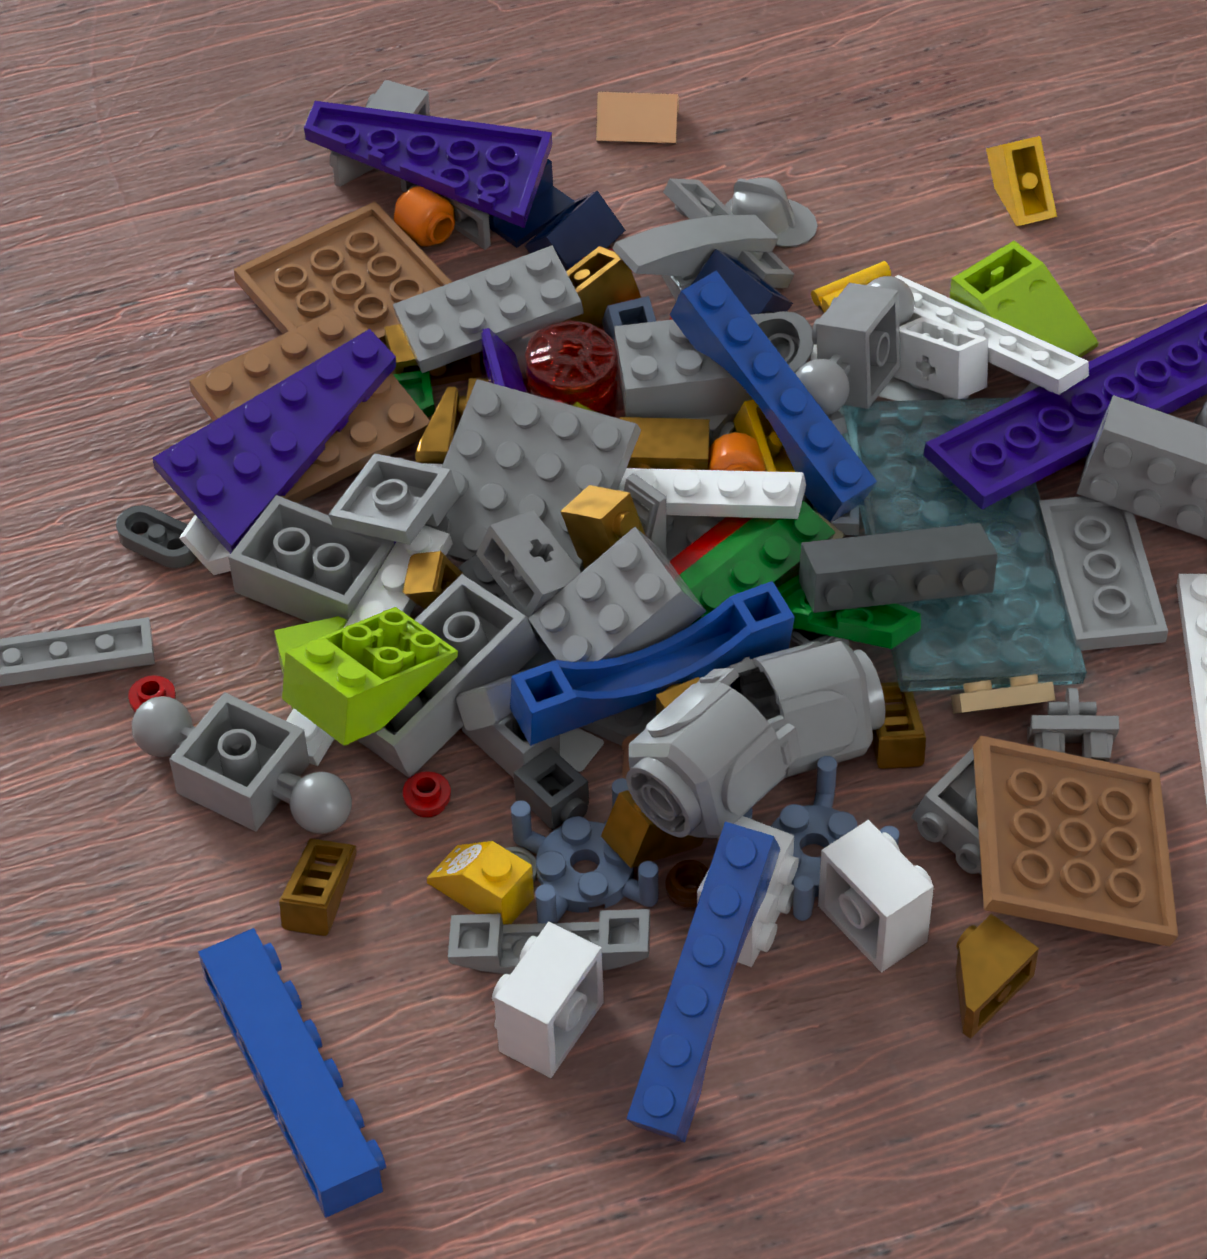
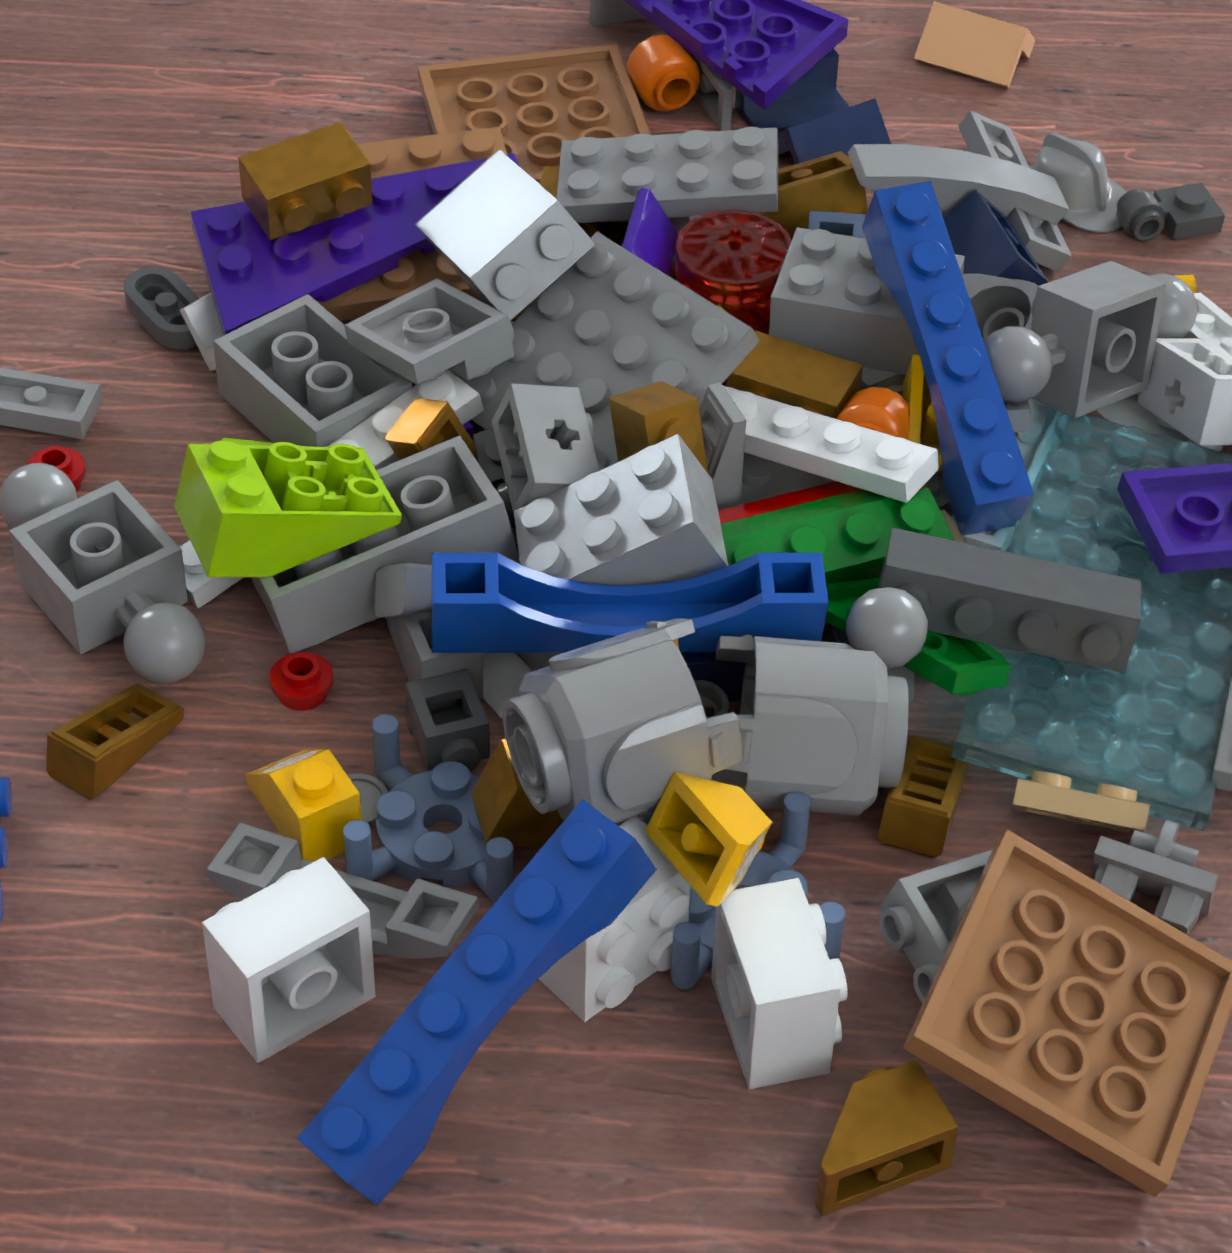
camera: 20 degrees right, 5 degrees down
(238, 407) = (305, 180): none -> pearl gold brick
(410, 404) = (504, 234): none -> slope
(803, 812) = (708, 833): none -> yellow slope
(833, 617) = (888, 624): none -> light grey piece
(848, 210) = (1180, 210): none -> dark grey plate

